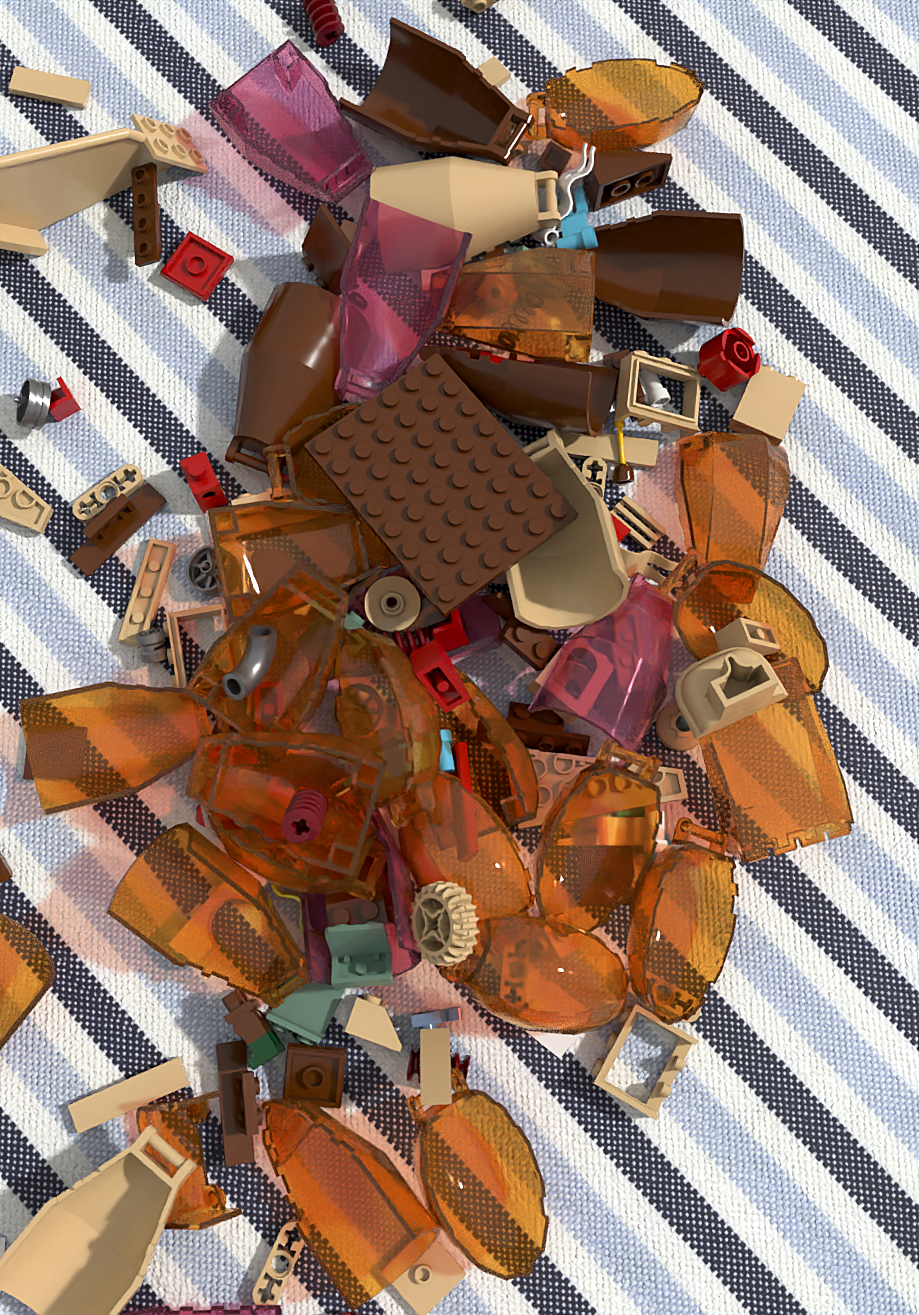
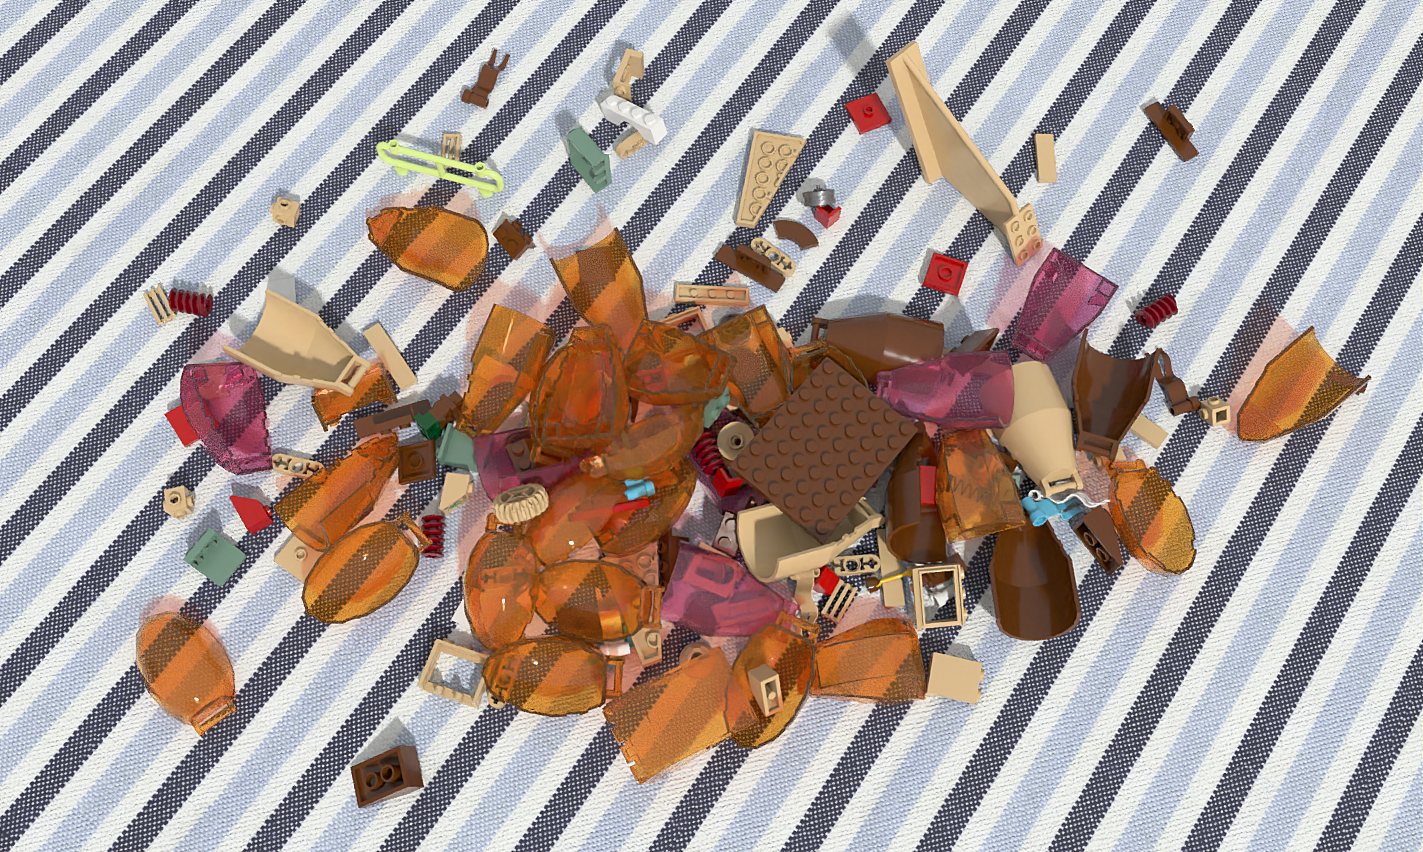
camera: 80 degrees right, 10 degrees down
(77, 452) = (795, 232): none -> reddish brown tile
(146, 214) = (967, 234): reddish brown bracket -> none
(152, 645) = (676, 304): flat silver wheel -> none
(202, 480) = (796, 308): red torso -> none
(254, 662) = (670, 356): flat silver cylinder -> none
(304, 816) = (573, 402): dark red piece -> none
(359, 955) = (493, 465): sand green bracket -> none
(429, 1019) = (463, 526): sand blue plate -> none
(435, 1067) = (431, 528): tan tile -> none
(439, 676) = (683, 466): red slope -> none
(440, 27) = (1176, 388): none -> reddish brown flag
(554, 158) = (1099, 490): reddish brown plate -> none
(726, 689) = (722, 671): tan piece -> none
(728, 359) = (978, 640): red brick -> none
(770, 1181) = (387, 776): none -> reddish brown slope

